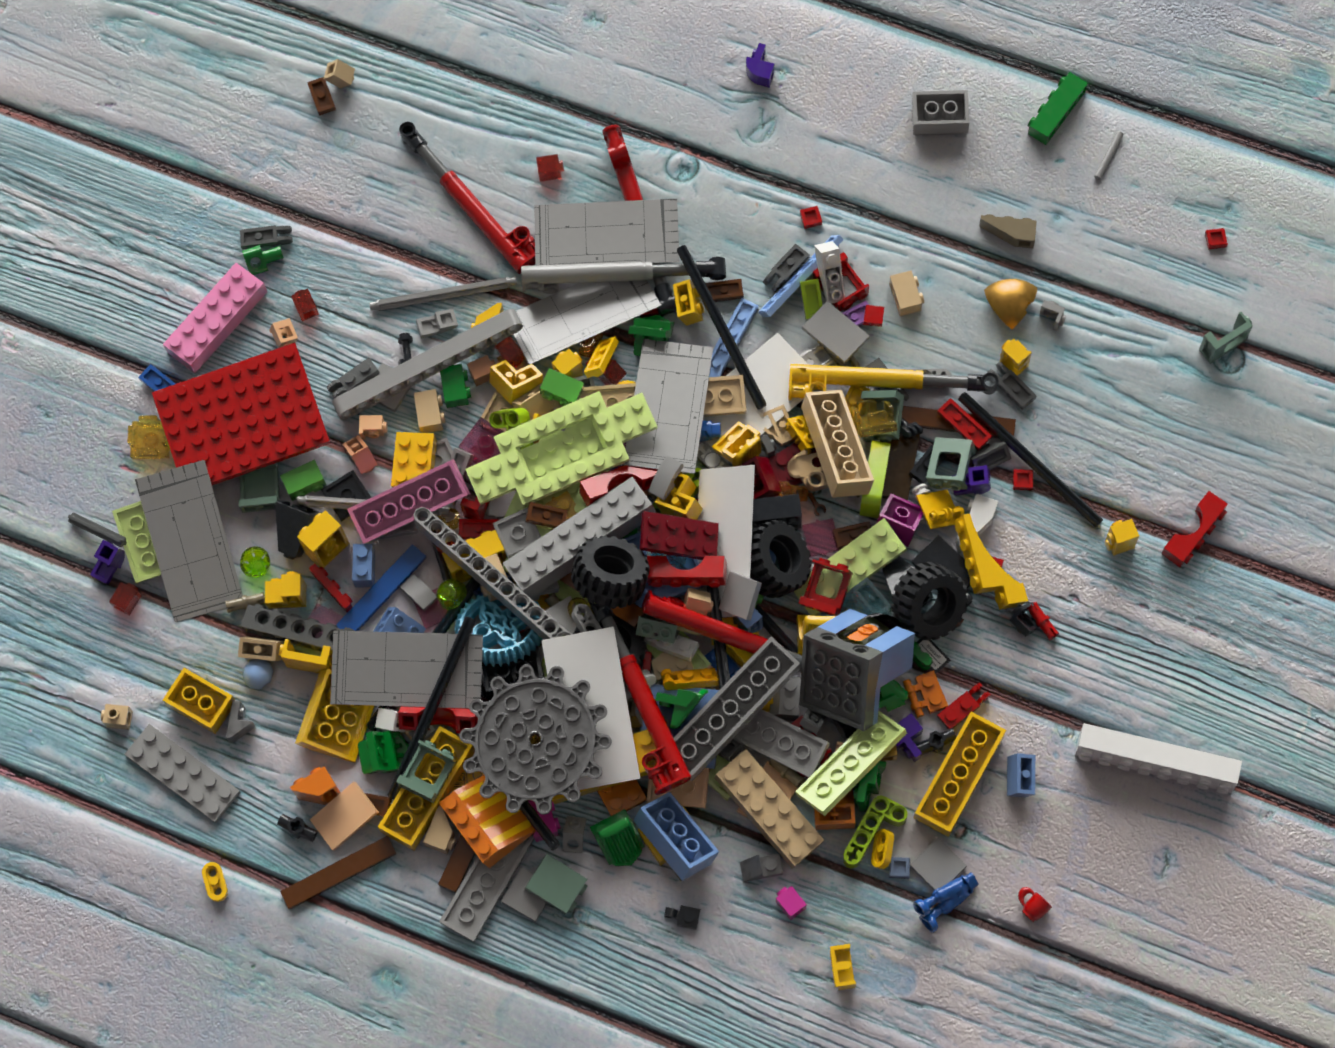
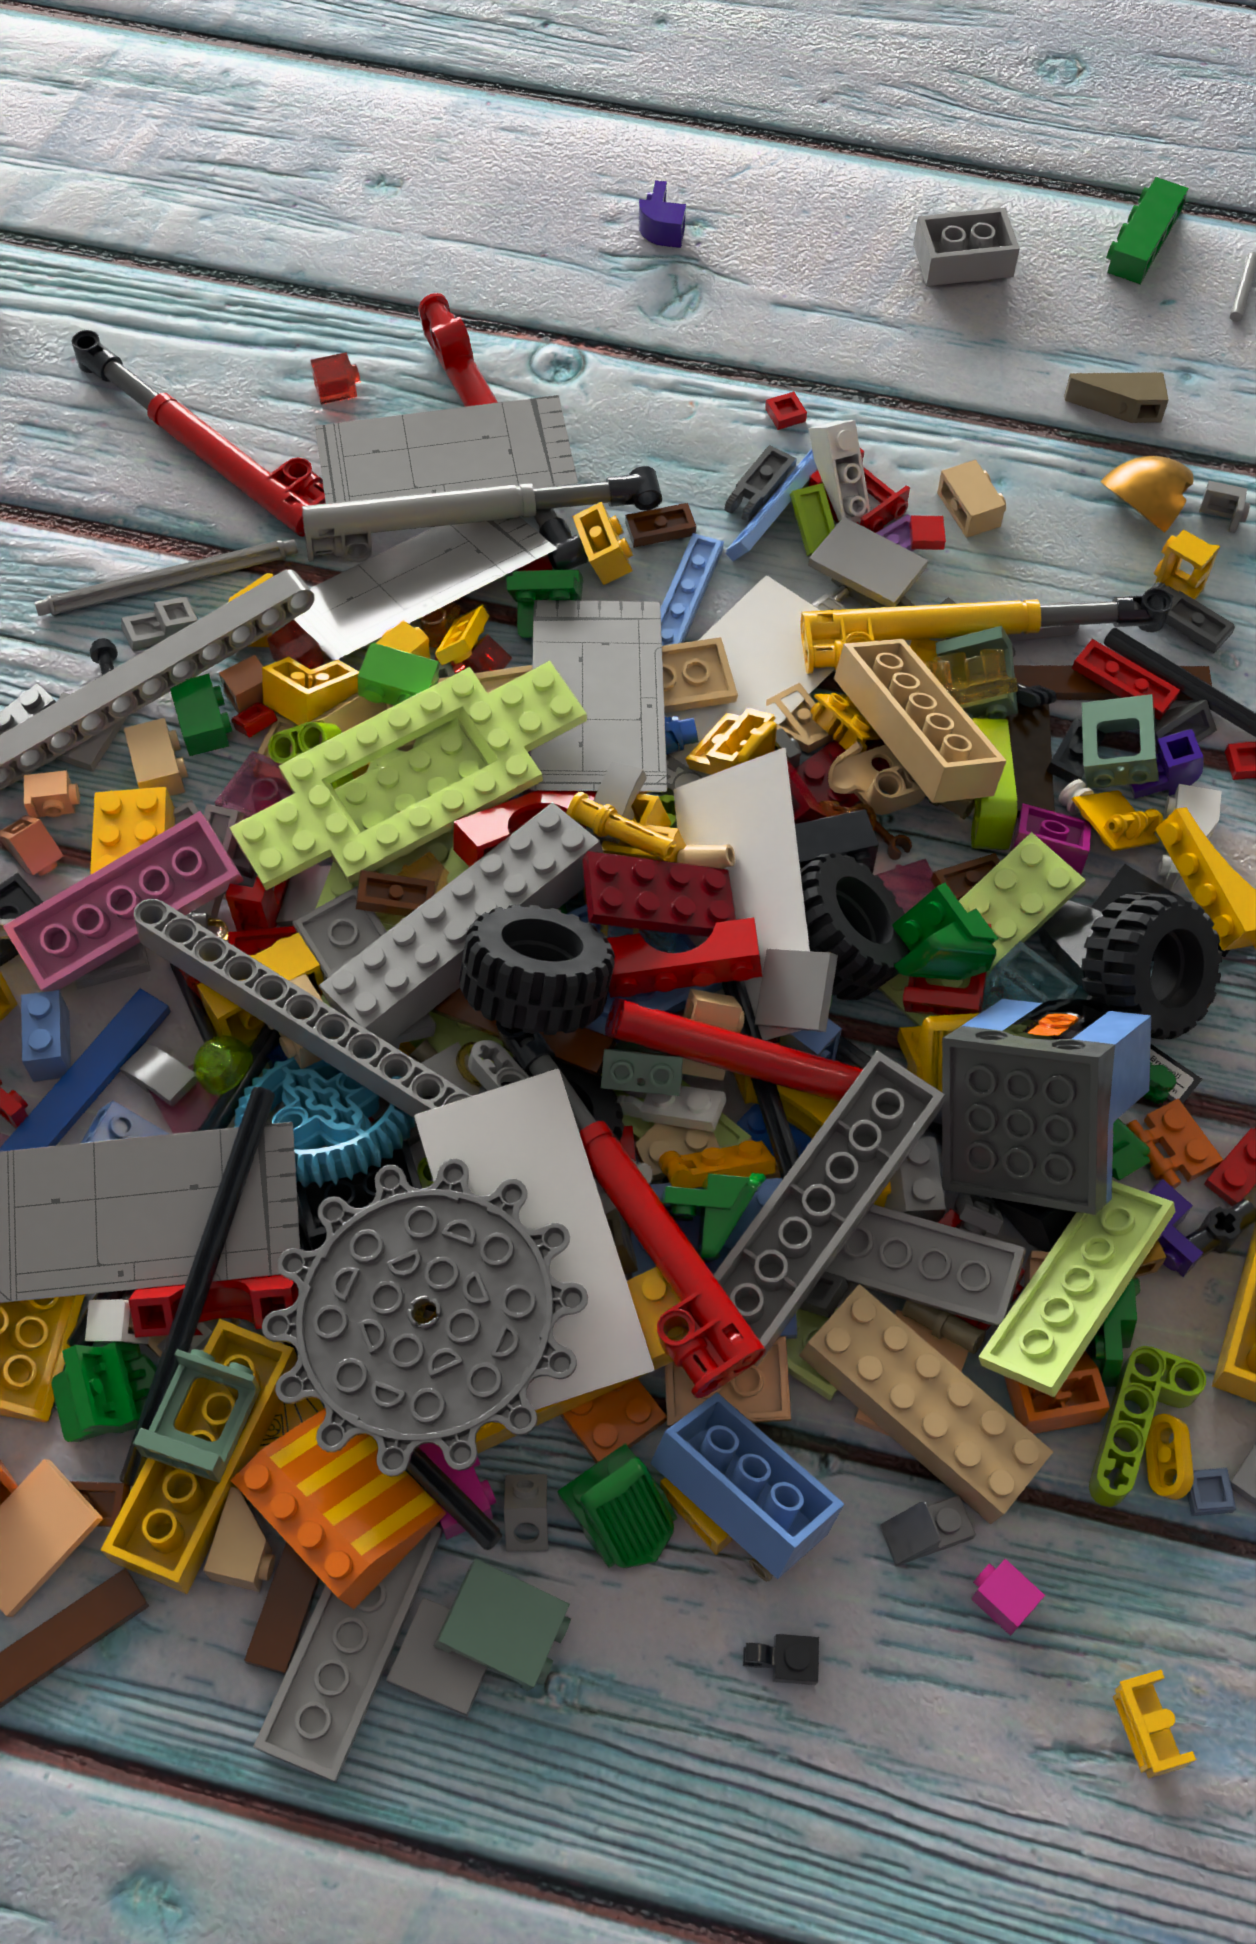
camera: 15 degrees left, 10 degrees down
(483, 392) = (254, 719): none -> red tile
(659, 491) = (606, 821): none -> yellow pin
(708, 514) = (707, 855): none -> tan cone
(721, 327) = (670, 570): black axle -> none
(822, 576) = (944, 939): none -> green piece

